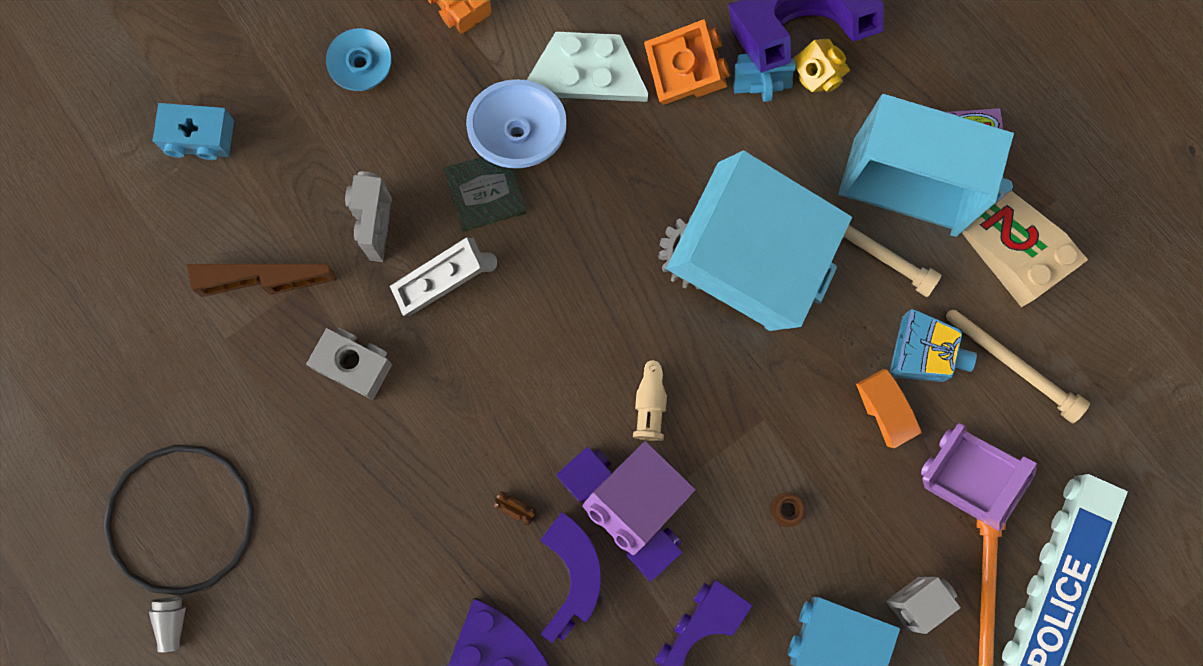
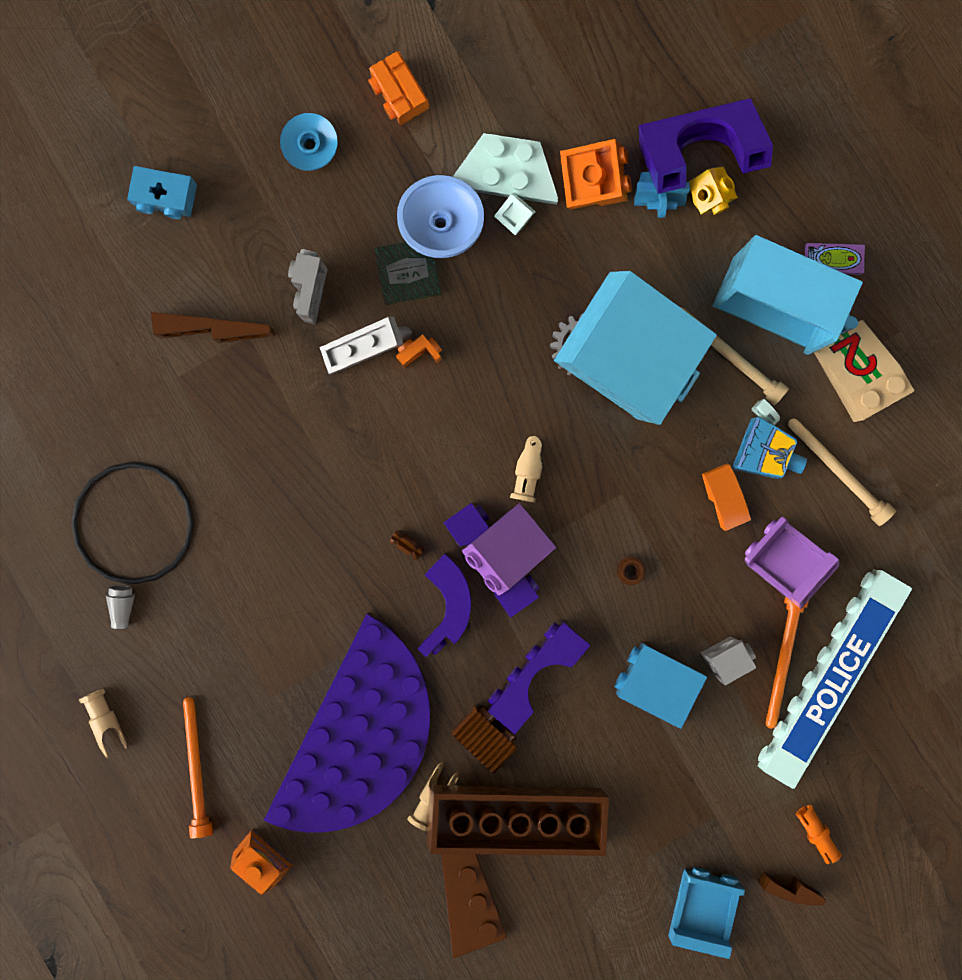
camera: 15 degrees right, 10 degrees up
(330, 356) = (264, 407): light grey brick -> none
(500, 276) = (412, 350): none -> orange bracket
(600, 114) = (514, 213): none -> light aqua tile
(919, 301) = (766, 412): none -> light aqua tile

